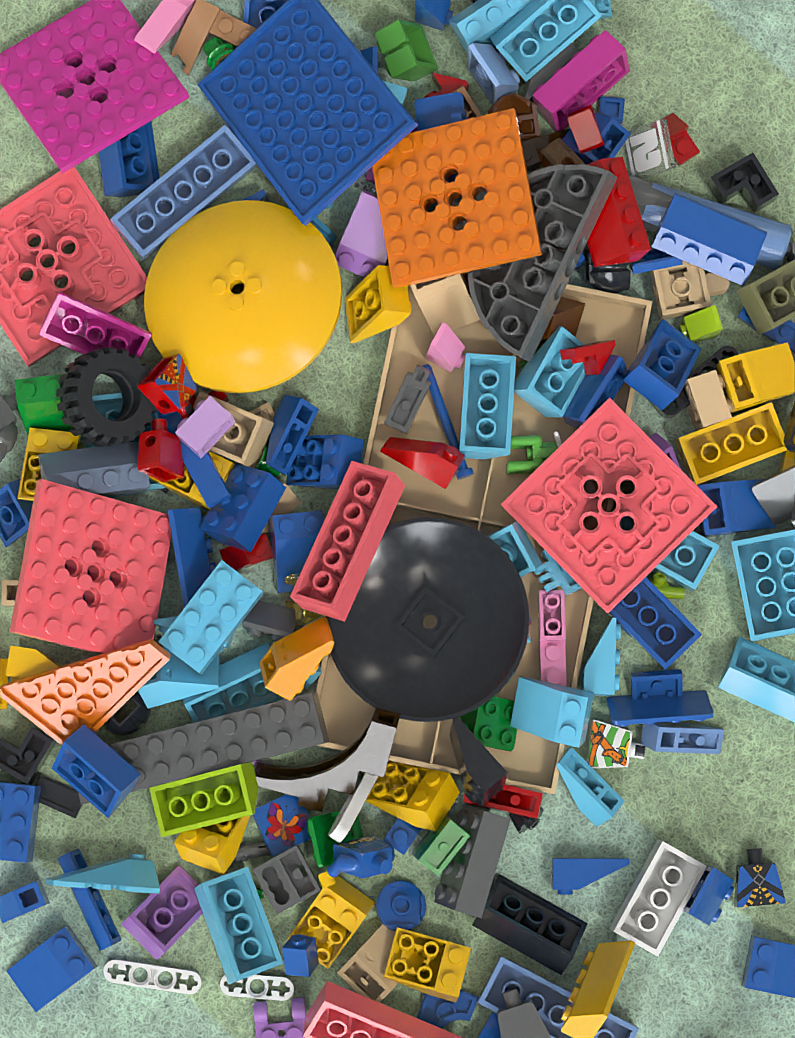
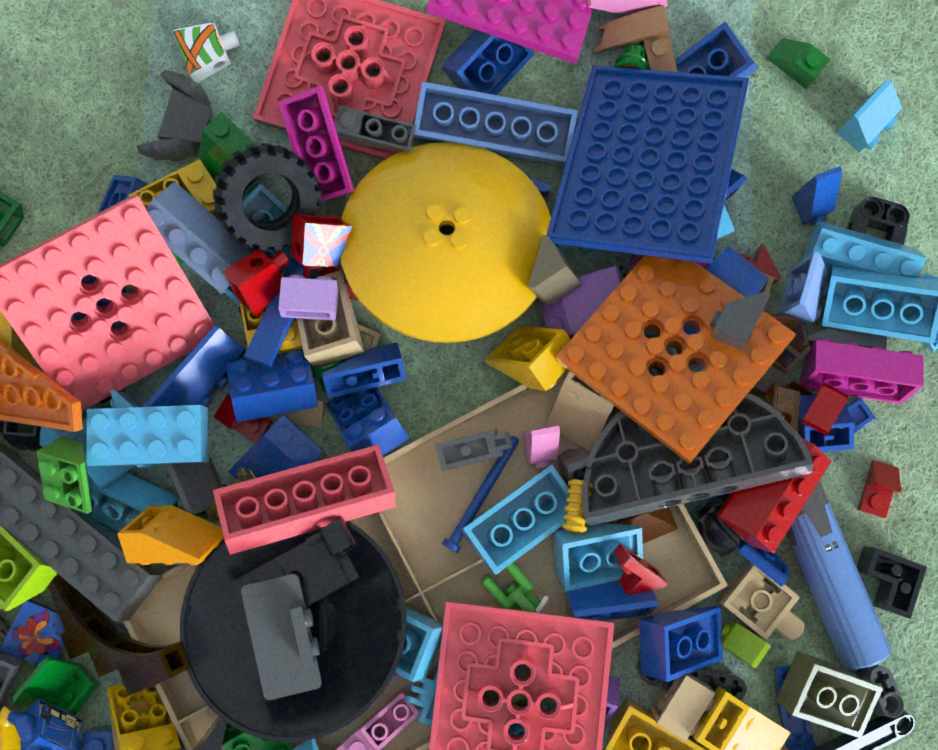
camera: 45 degrees right, 0 degrees up
(116, 282) = (372, 130): none -> dark grey slope
(193, 694) = (65, 474): none -> bright green slope
(332, 240) = (552, 274): none -> dark tan slope
(352, 807) = (81, 687): white beam -> none
(403, 566) = (319, 559): none -> black hinge
(406, 51) = (763, 206): bright green piece -> none
(428, 458) = (434, 507): red slope -> none
(431, 627) = (281, 636): none -> dark grey bracket
(472, 139) = (738, 320): none -> dark grey slope
(480, 340) = (573, 464): none -> dark grey slope
(512, 362) = (575, 516): none -> yellow piece
(649, 150) = (853, 476): tile -> none
(709, 239) = (823, 594): blue slope -> none

